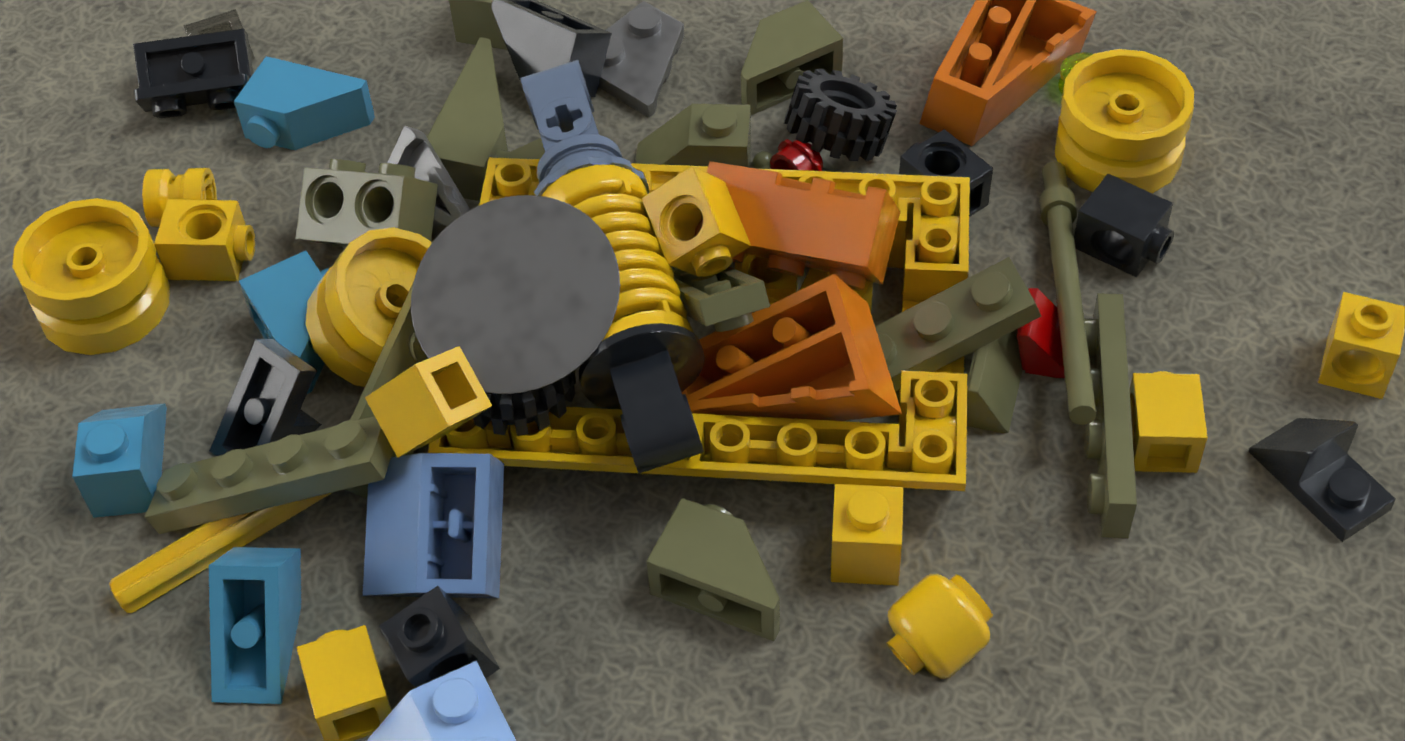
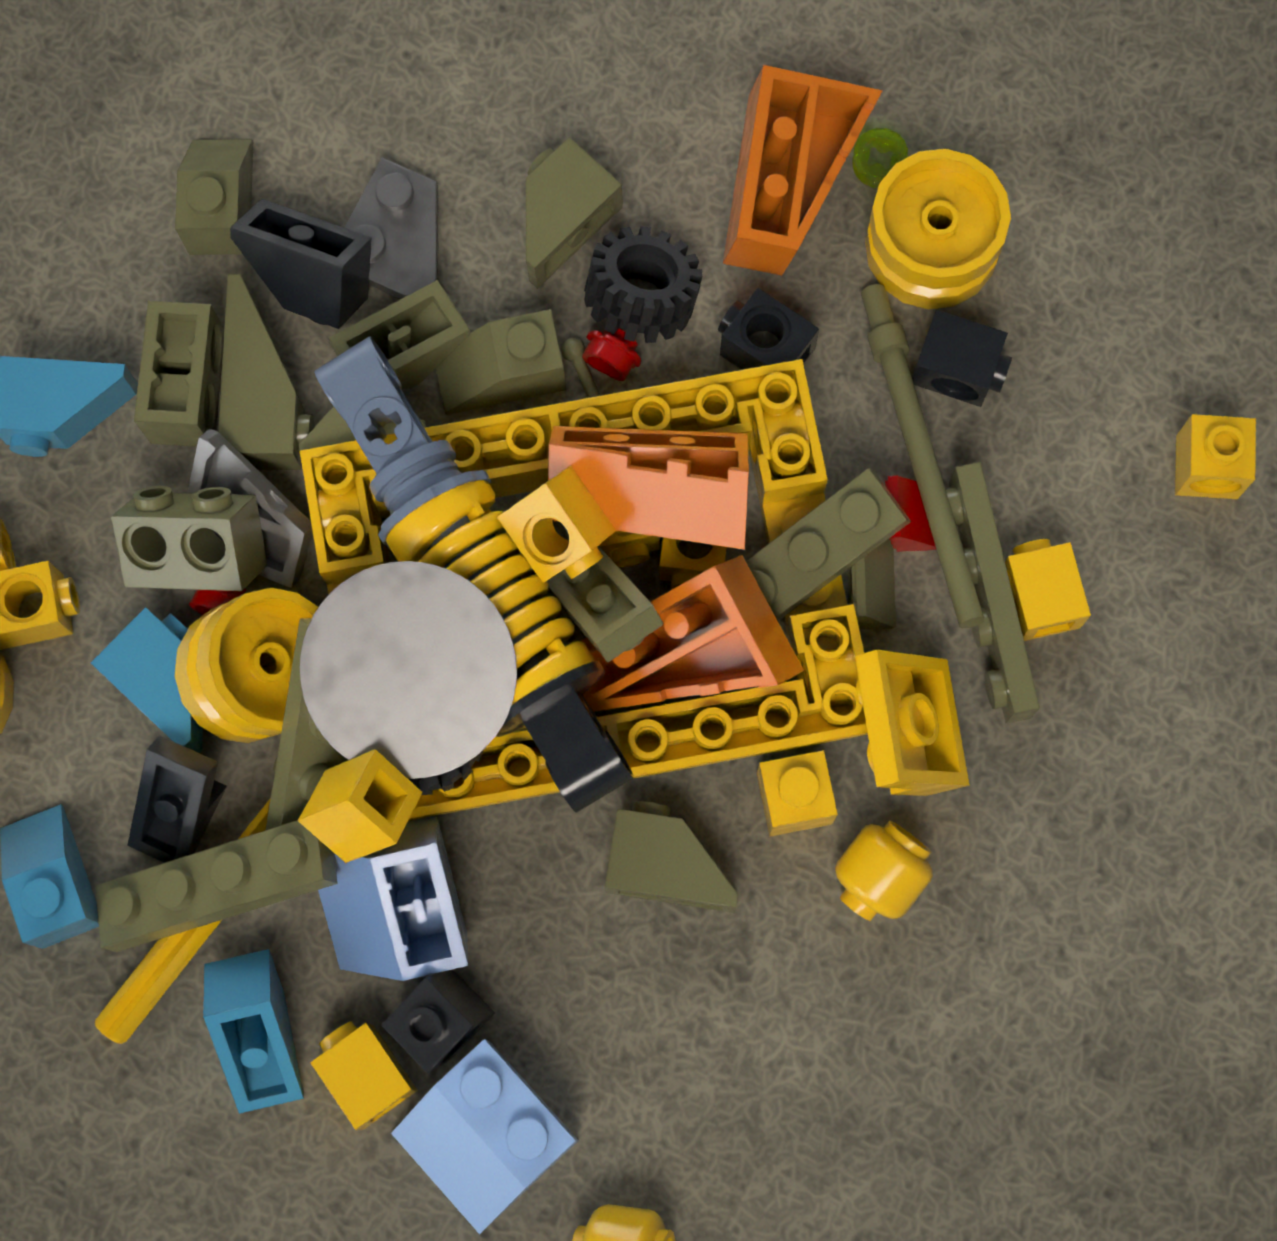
camera: 15 degrees left, 25 degrees up
(406, 92) = (179, 372): none -> olive brick
(629, 108) = (411, 333): none -> olive slope
(998, 486) = (911, 723): none -> yellow plate
(1315, 467) = (1193, 605): black slope -> none

